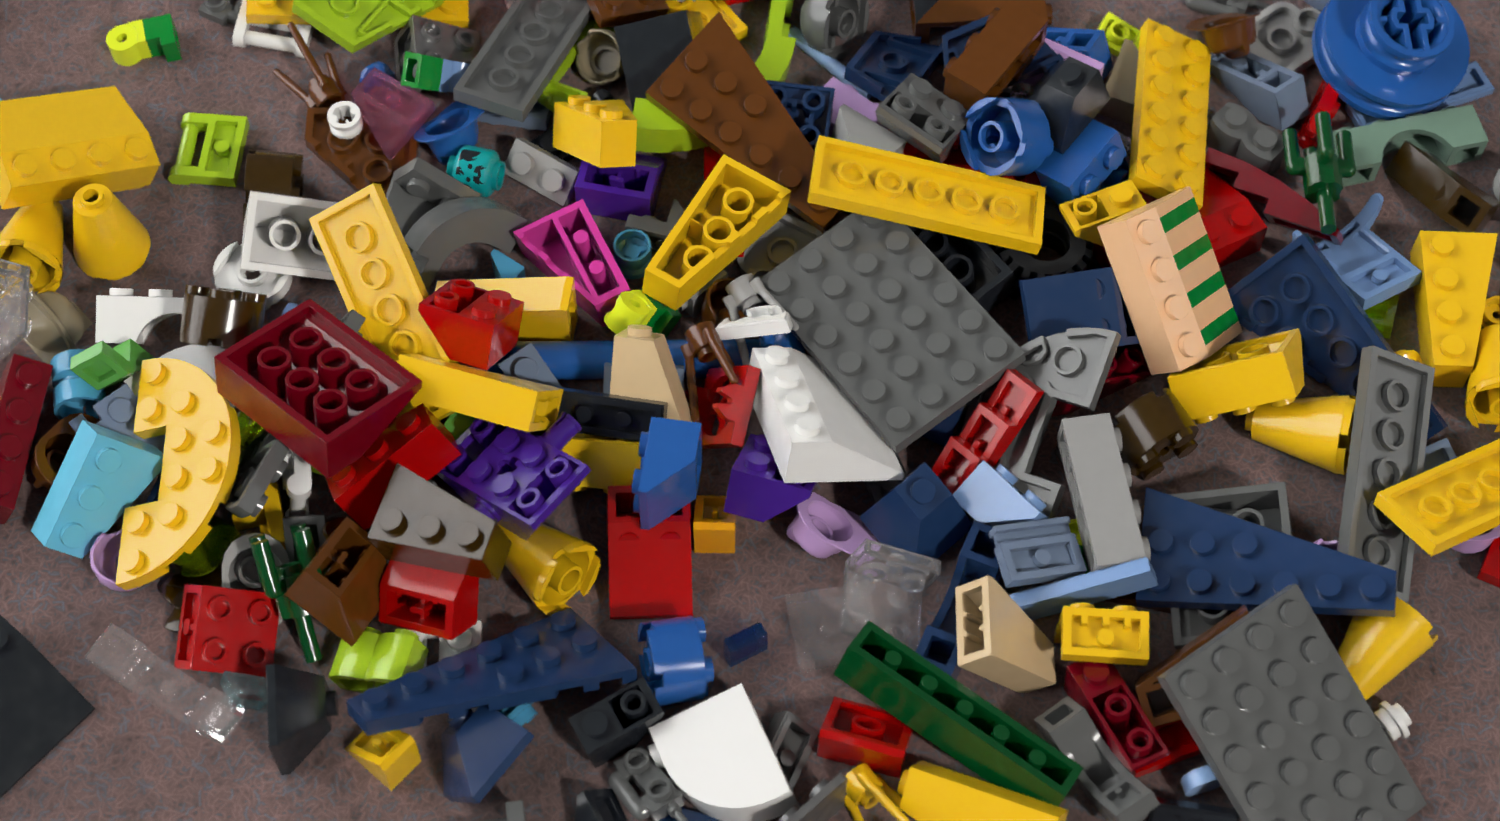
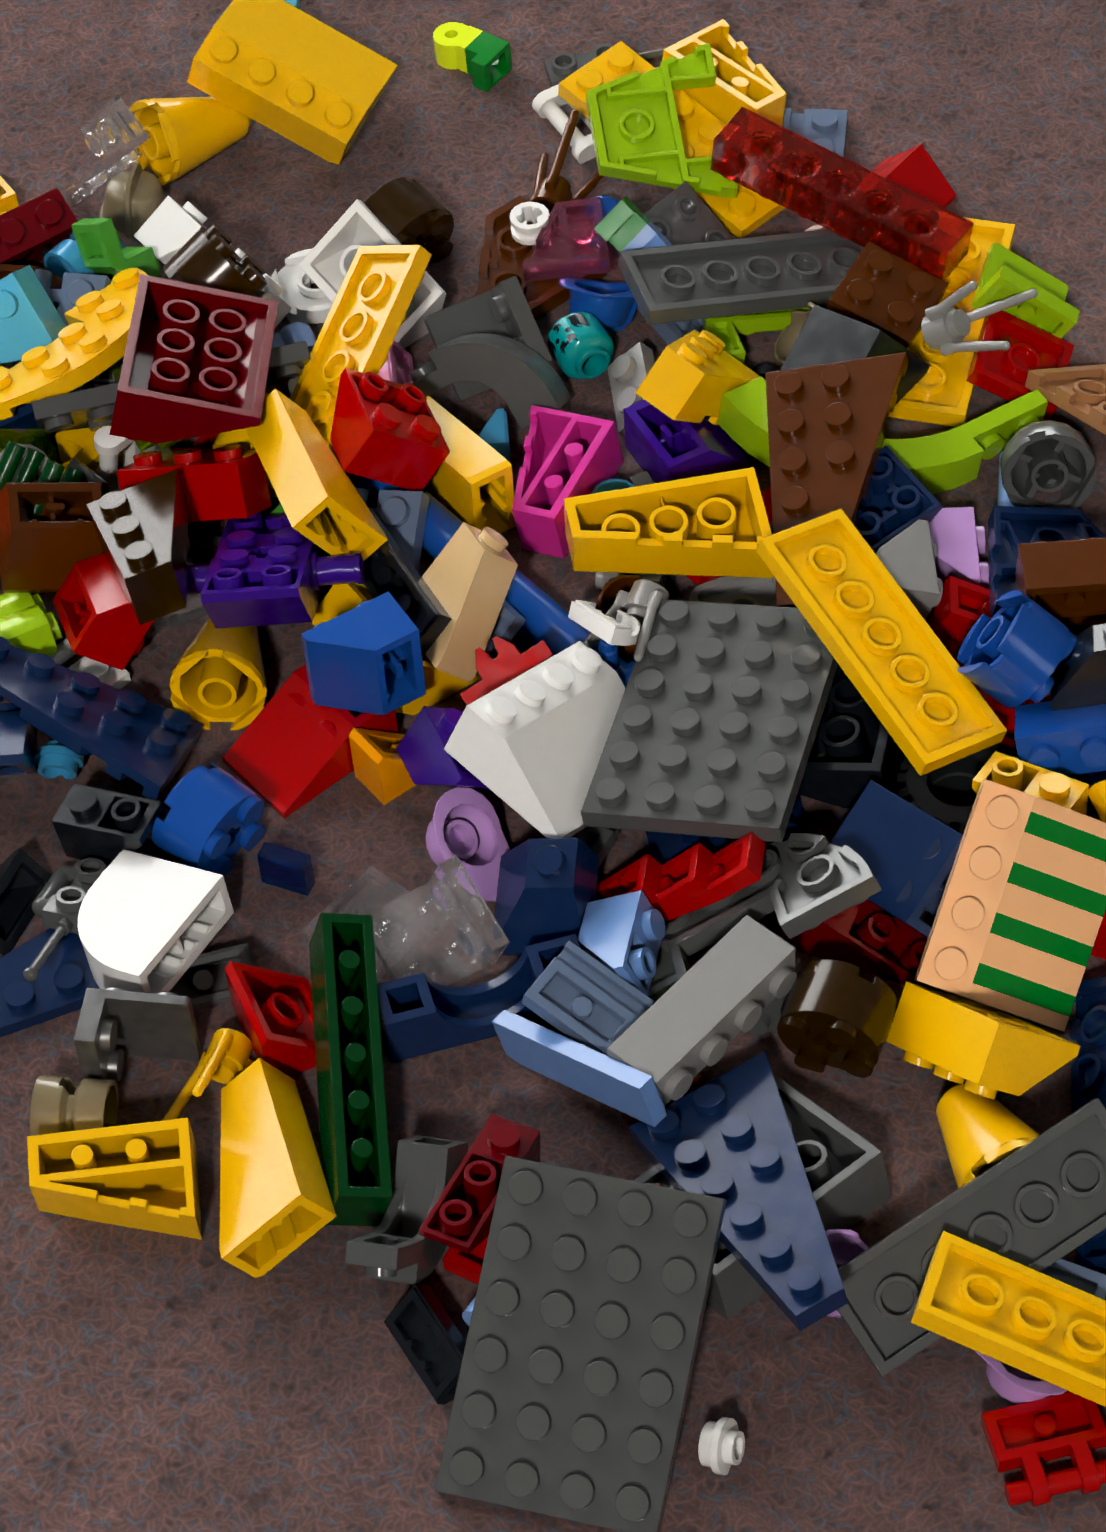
camera: 55 degrees right, 10 degrees down
(106, 234) = (246, 164): yellow cone -> none
(220, 152) = (421, 159): lime plate -> none
(638, 308) = (545, 551): neon yellow leg -> none
(706, 346) = (548, 612): reddish brown plant -> none
(923, 117) = (962, 574): dark grey slope -> none
(1000, 638) = (466, 1043): tan slope -> none
(1103, 634) = (546, 1113): yellow bracket -> none
(1382, 647) = (783, 1372): yellow cone -> none

